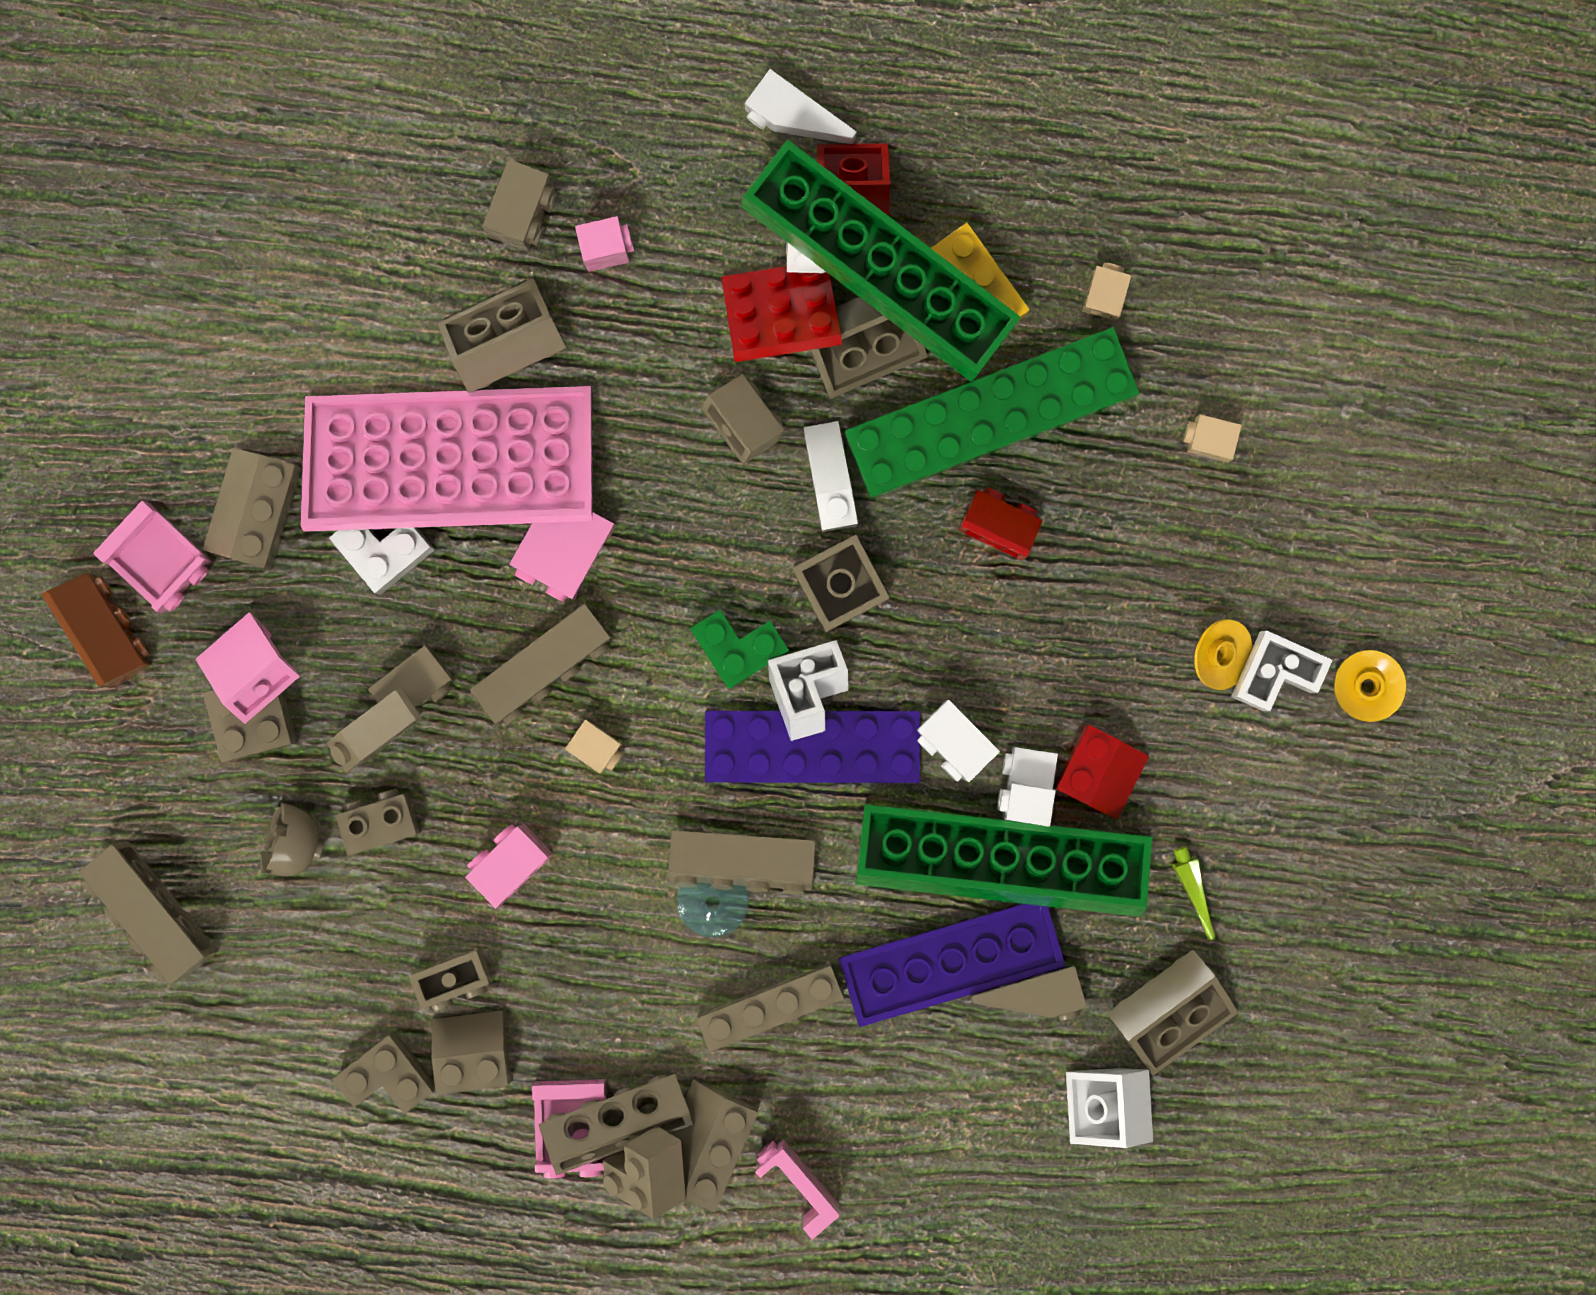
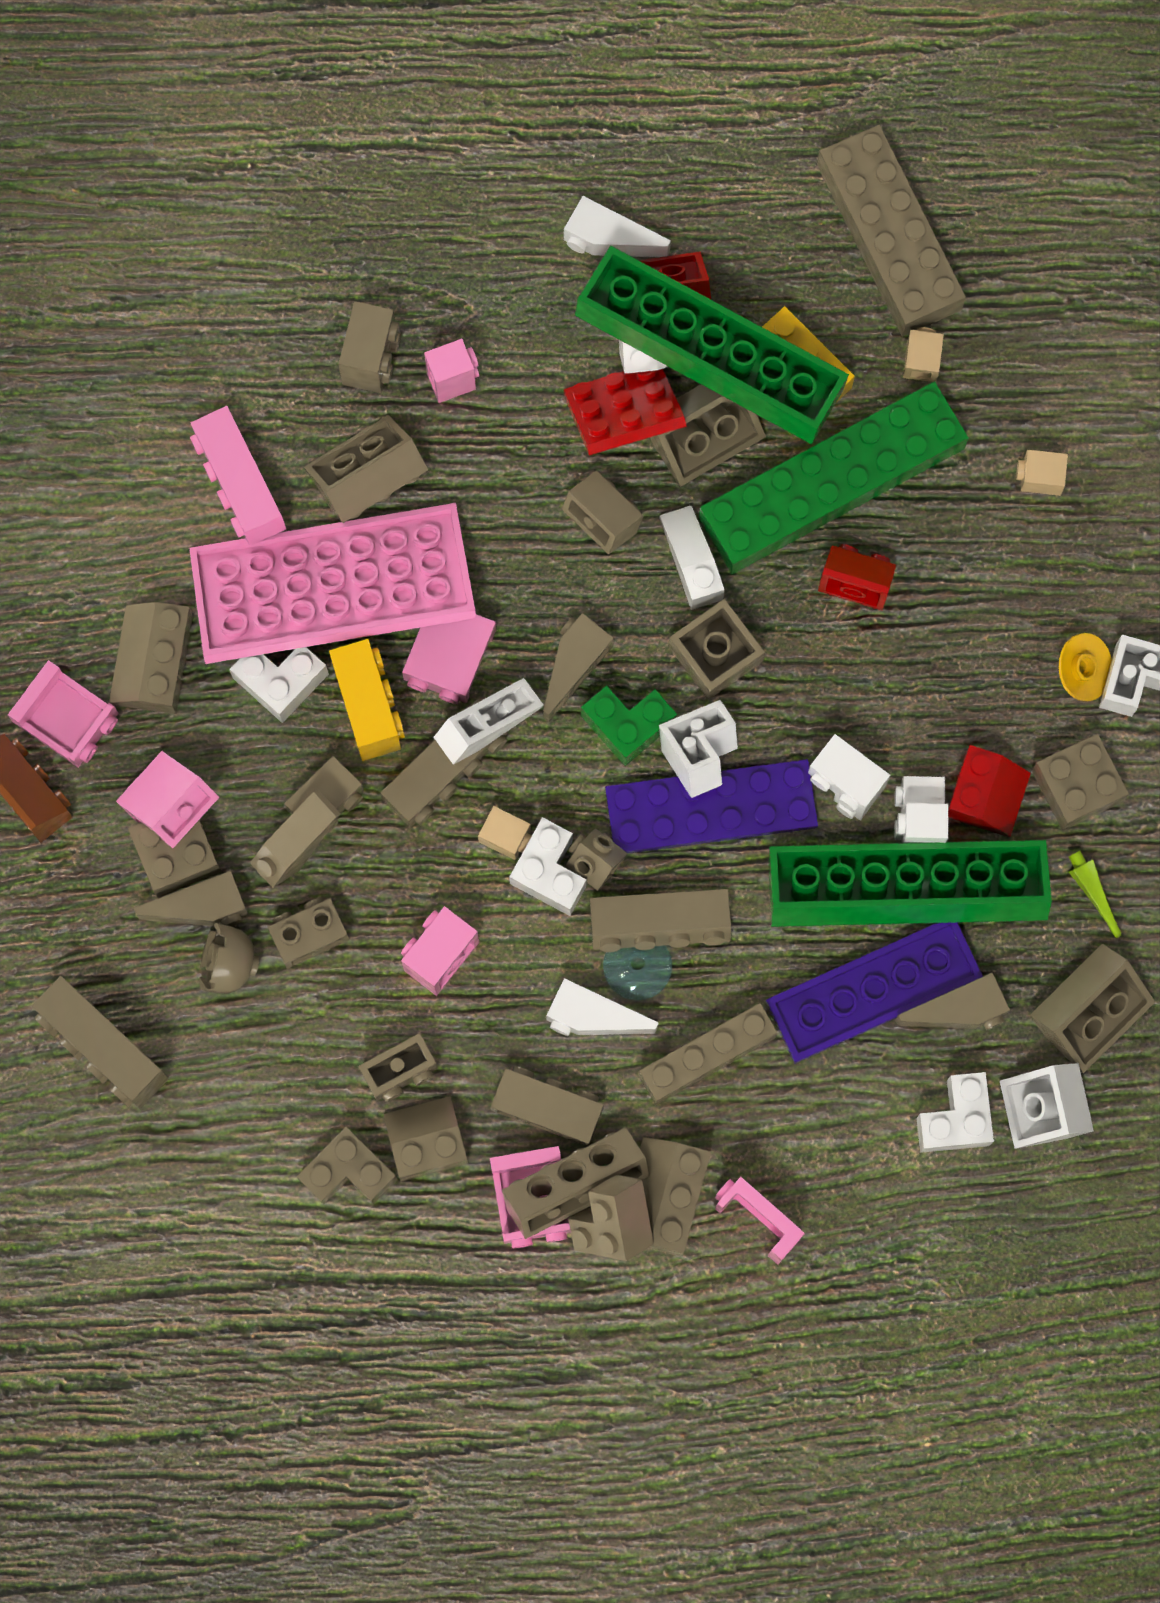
camera: 10 degrees left, 10 degrees down
(276, 778) = (200, 904): none -> dark tan slope
(364, 327) = (237, 475): none -> bright pink brick
(468, 588) = (367, 699): none -> yellow brick
(590, 631) = (487, 720): none -> white slope
(599, 1037) = (547, 1105): none -> dark tan brick
(624, 791) = (540, 870): none -> white brick
(655, 947) = (589, 1013): none -> white slope
(683, 787) = (595, 858): none -> dark tan brick
(695, 568) = (577, 656): none -> dark tan slope
(1024, 1115) = (966, 1123): none -> white brick
(1093, 149) = (891, 230): none -> dark tan brick
(1198, 776) = (1080, 782): none -> dark tan brick

